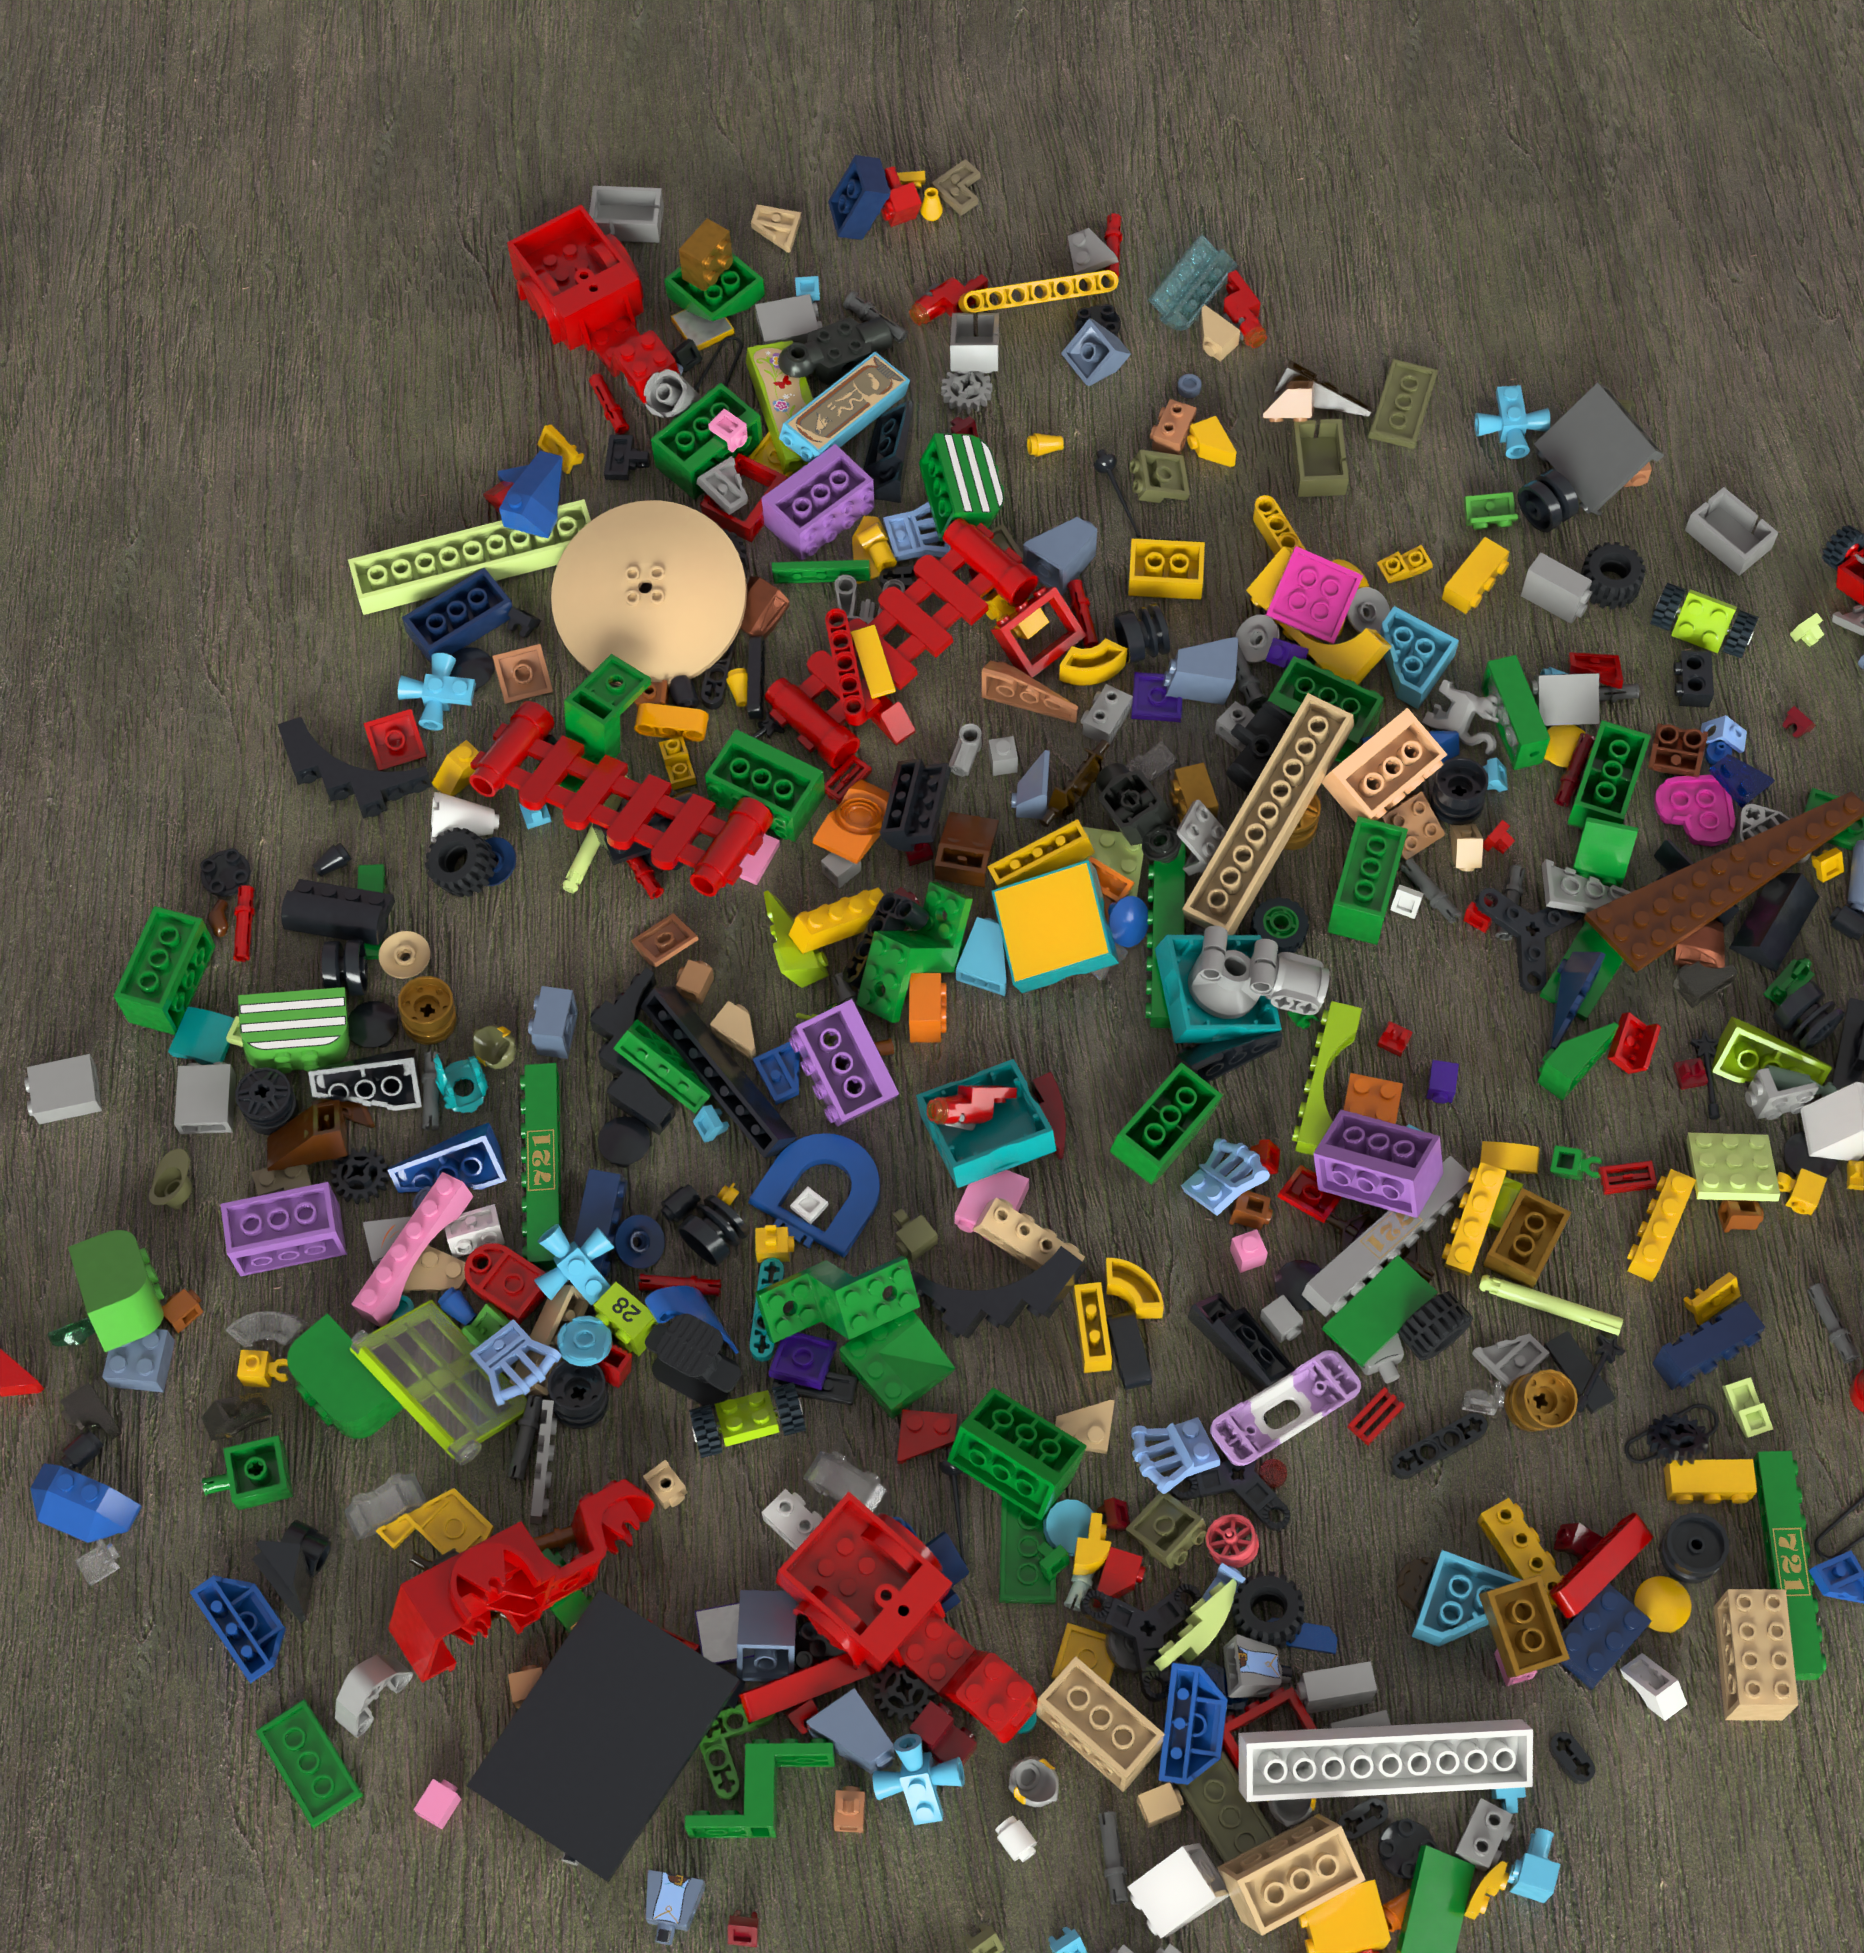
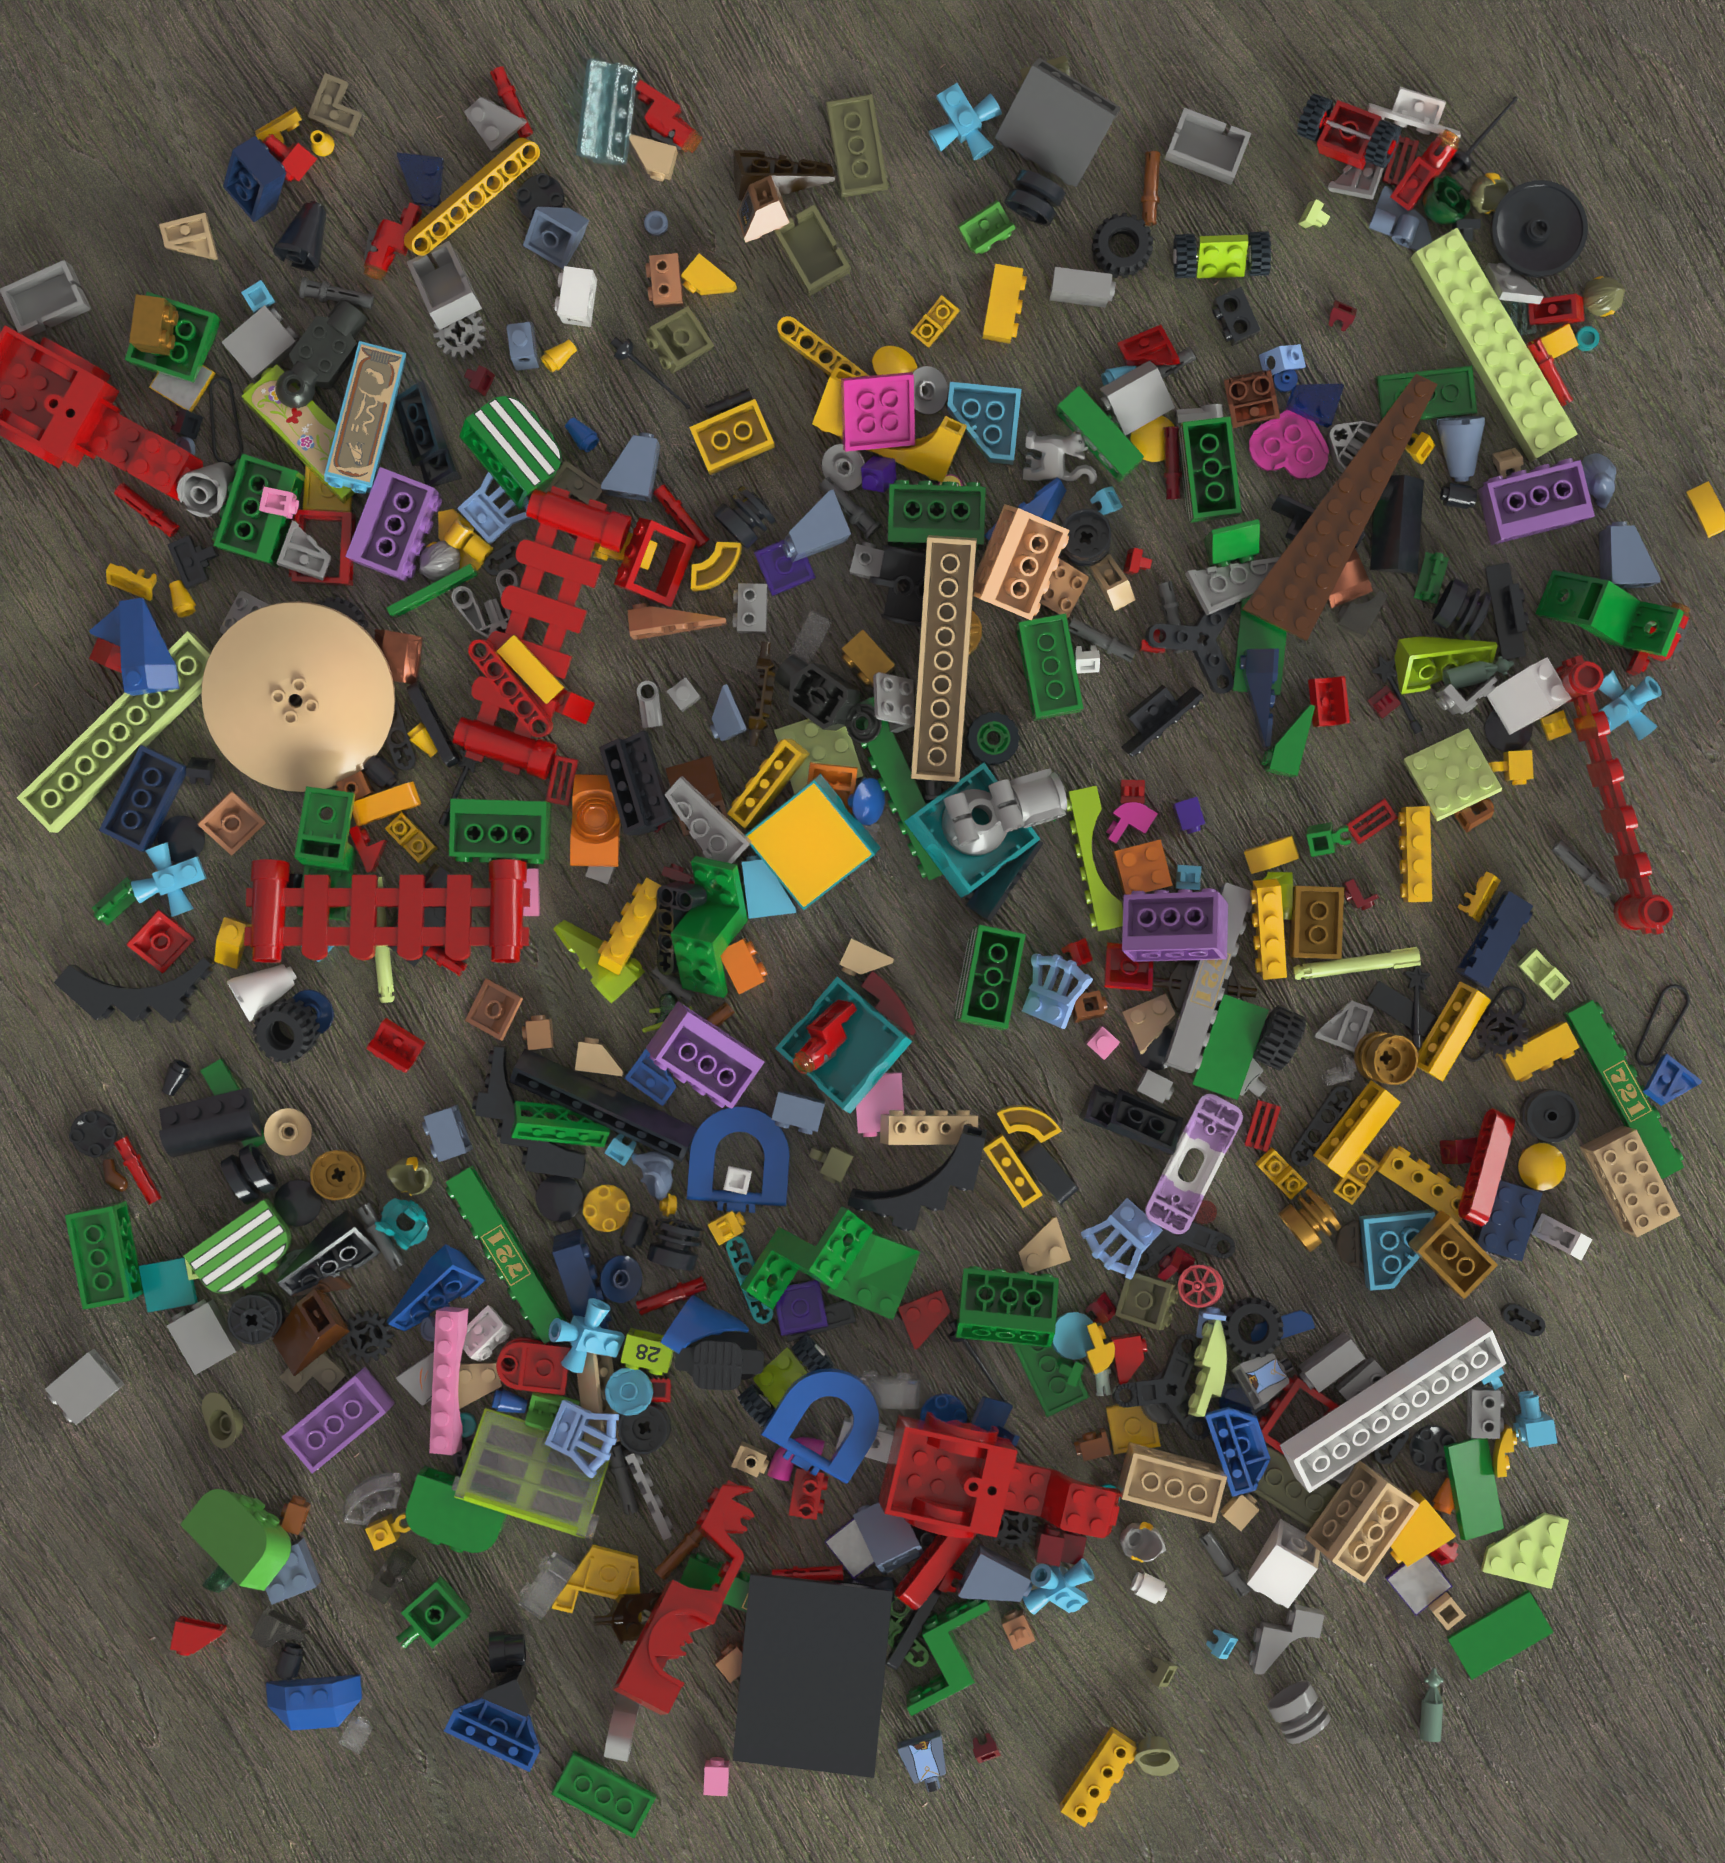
camera: 30 degrees left, 25 degrees up
(375, 692) = (115, 902): none -> green hinge
(553, 928) = (396, 1045): none -> red bracket
(593, 484) = (182, 601): none -> yellow cone
(633, 751) = (369, 854): none -> red slope
(664, 1171) = (606, 1208): none -> yellow dish
(706, 1548) = (807, 1493): none -> red brick
(714, 1500) = (782, 1468): none -> dark pink cylinder
(733, 1159) = (656, 1172): none -> sand blue hair
(736, 1745) = (911, 1631): none -> black beam
(743, 1436) = (794, 1405): none -> blue piece
(841, 548) = (439, 560): none -> light grey hair
(871, 264) = (303, 238): none -> black cone
(906, 1164) = (798, 1111): none -> sand blue brick
(962, 858) = (707, 825): none -> light grey wing
(1004, 266) = (422, 177): none -> clear blue wing
(1018, 411) = (523, 345): none -> sand blue torso
(1030, 514) = (582, 435): none -> blue cone
(1033, 1652) = (1093, 1445): none -> dark orange brick
(1045, 1057) = (862, 959): none -> tan slope
(1087, 401) = (576, 296): none -> white brick
(1216, 1502) = (1175, 1261): none -> dark red bracket
(1306, 1253) = (1149, 1020): none -> tan wing
(1373, 1473) = (1281, 1173): none -> yellow slope
(1382, 1055) = (1131, 814): none -> dark pink brick
(1388, 1525) = (1310, 1220): none -> pearl gold wheel
(1452, 1516) = (1356, 1178): none -> yellow slope
(1453, 975) = (1156, 715): none -> black bracket
(1477, 1461) = (1357, 1128): none -> yellow brick
(1577, 1233) = (1352, 894): none -> dark red bracket
(1622, 1412) = (1451, 1030): none -> yellow brick
(1657, 553) = (1150, 194): none -> dark orange pin

